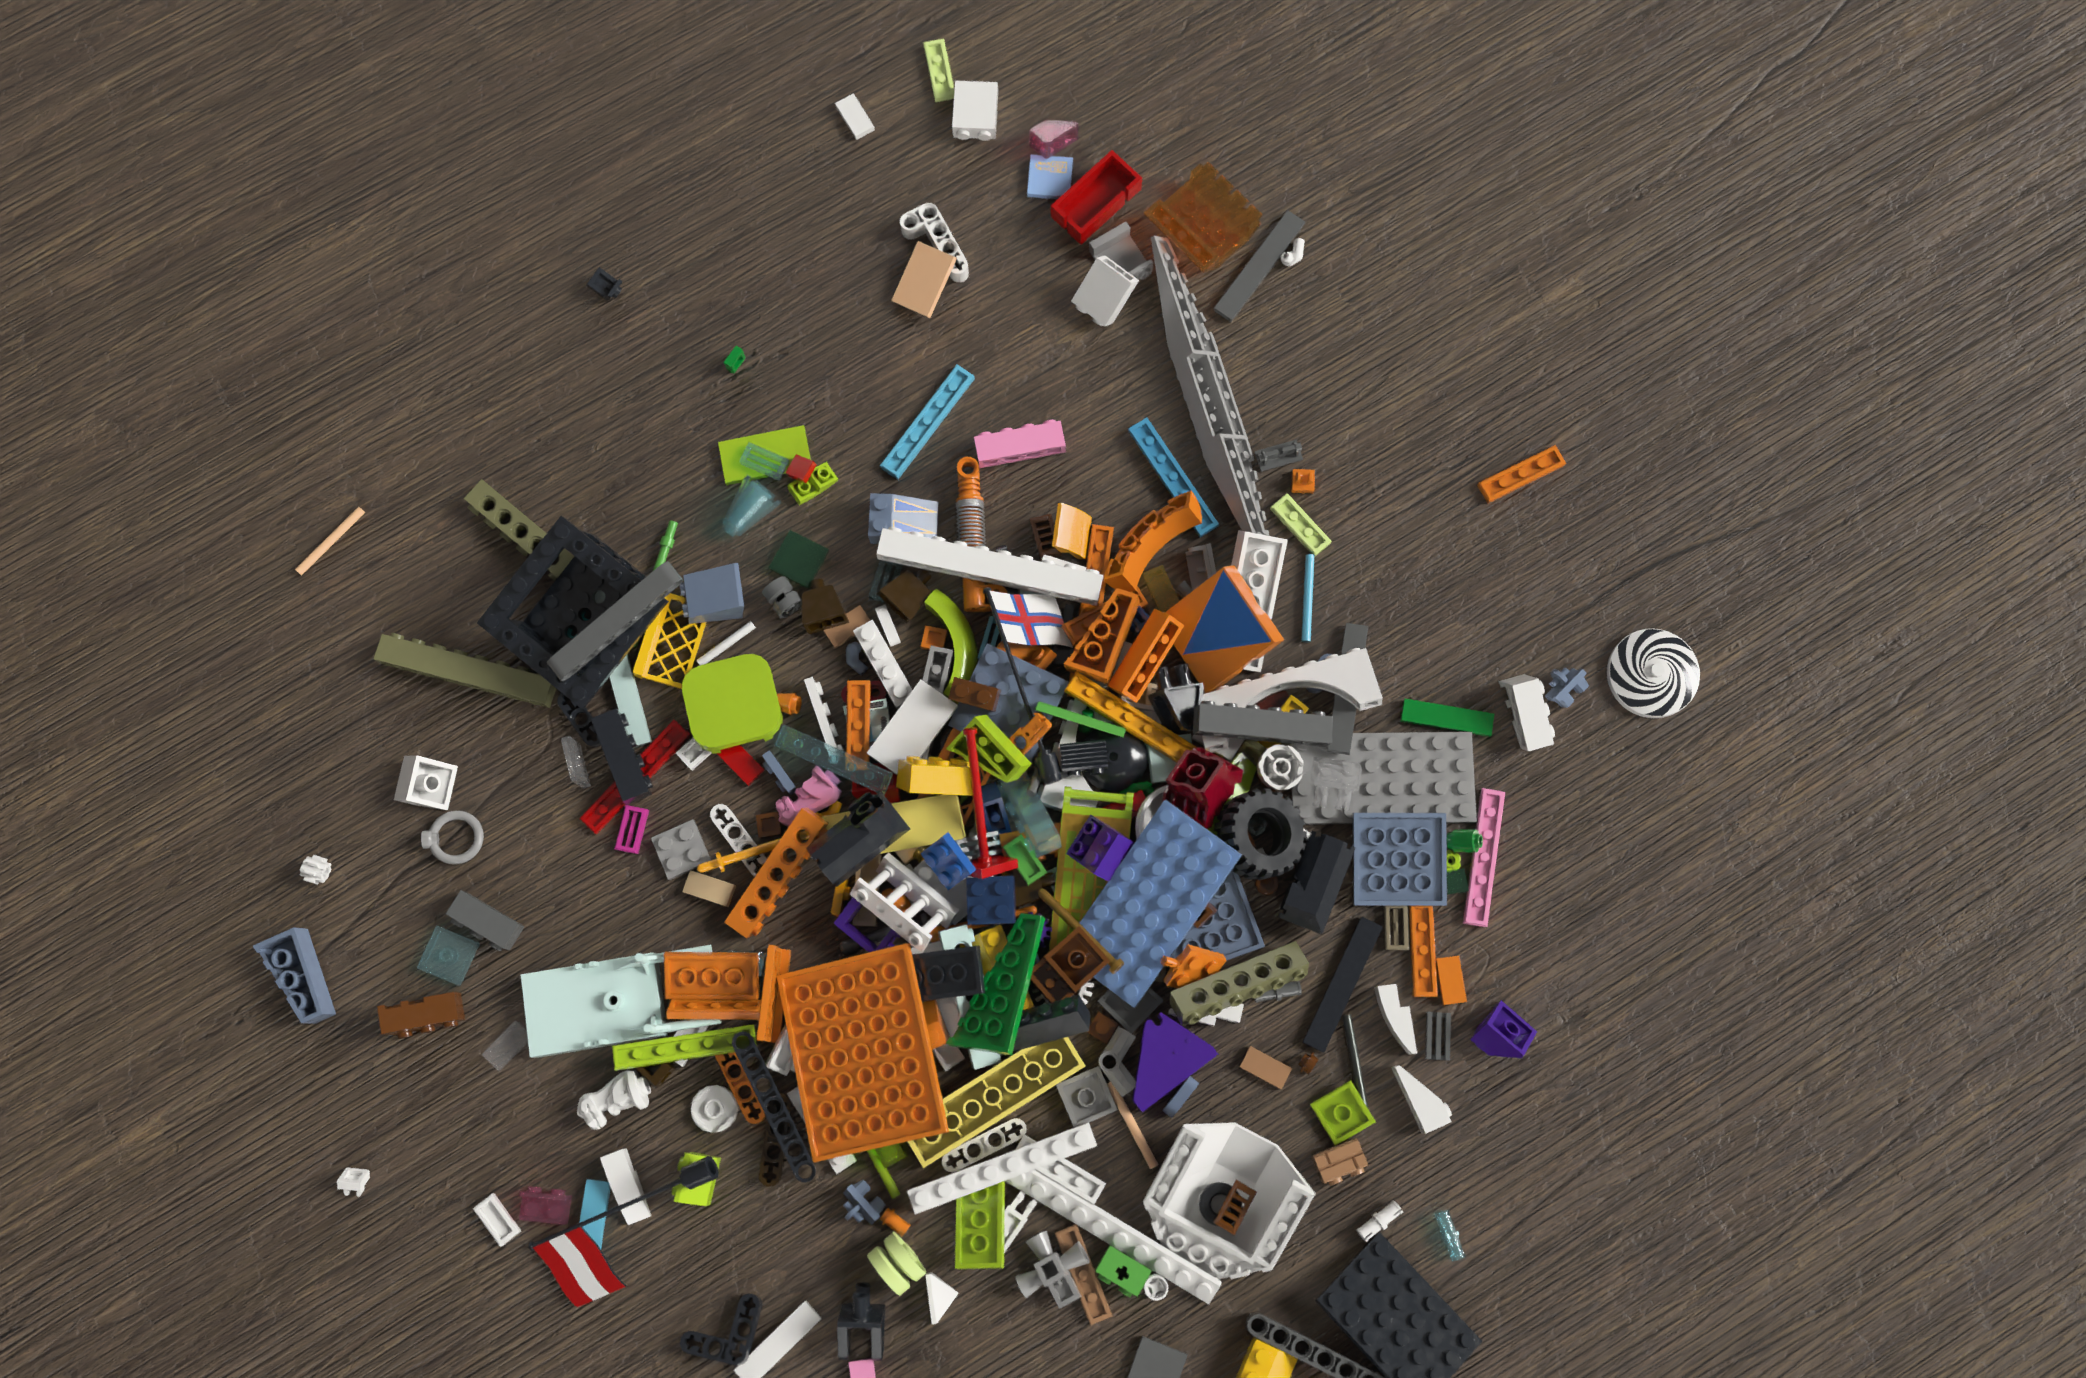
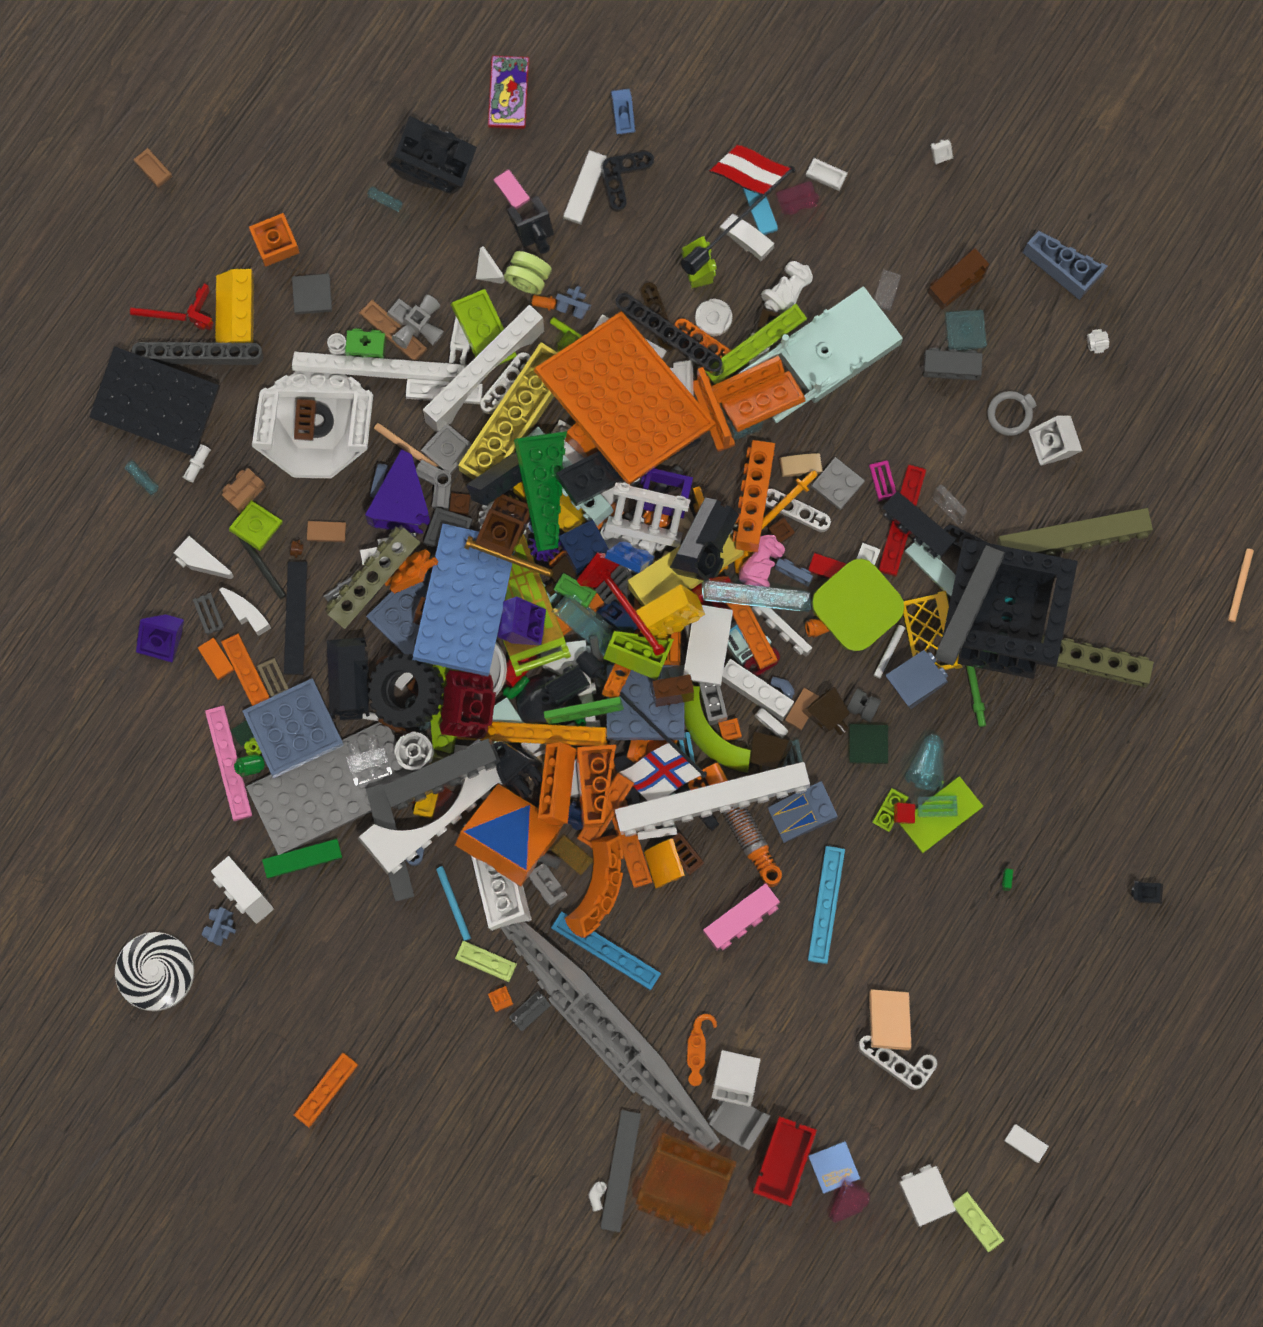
camera: 150 degrees right, 0 degrees up
(1128, 342) = (696, 1049): none -> orange piece

